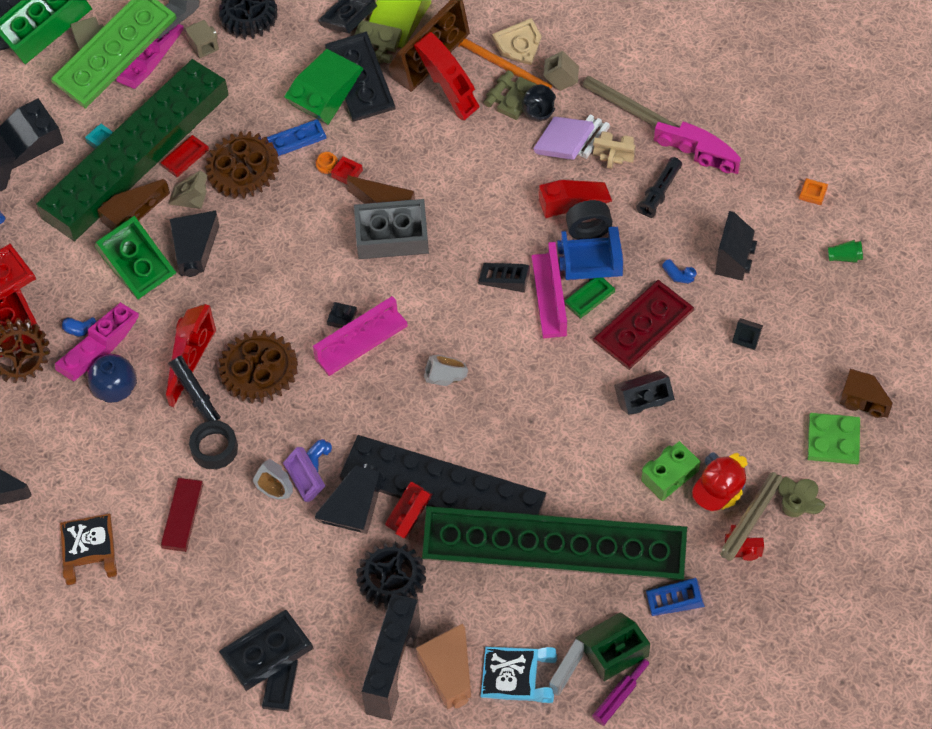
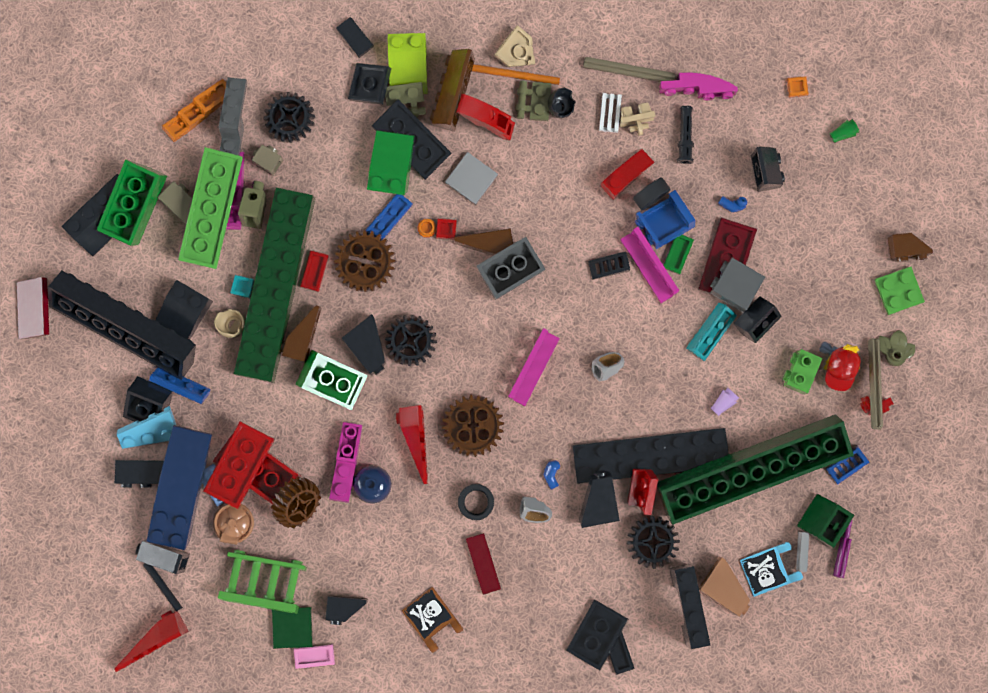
camera: 30 degrees left, 25 degrees up
(60, 160) = (224, 318): none -> tan hair
(77, 327) = (322, 455): blue arm -> none
(157, 68) = (253, 206): none -> olive torso
(190, 191) = (338, 303): dark tan slope -> none
(194, 390) = (449, 474): black pin -> none
(229, 252) = (403, 345): none -> black gear
(304, 474) = (552, 494): medium lavender tile -> none
(341, 315) = (508, 354): black tile -> none
(402, 138) = (471, 178): none -> light grey tile
(561, 71) = (564, 65): dark tan brick -> none
(561, 464) = (724, 401): none -> lavender cone
(564, 138) = (595, 125): lavender tile -> none
(585, 387) = (709, 330): none -> teal slope
(638, 345) = (737, 284): none -> dark grey piece
(747, 334) = (806, 234): black tile -> none

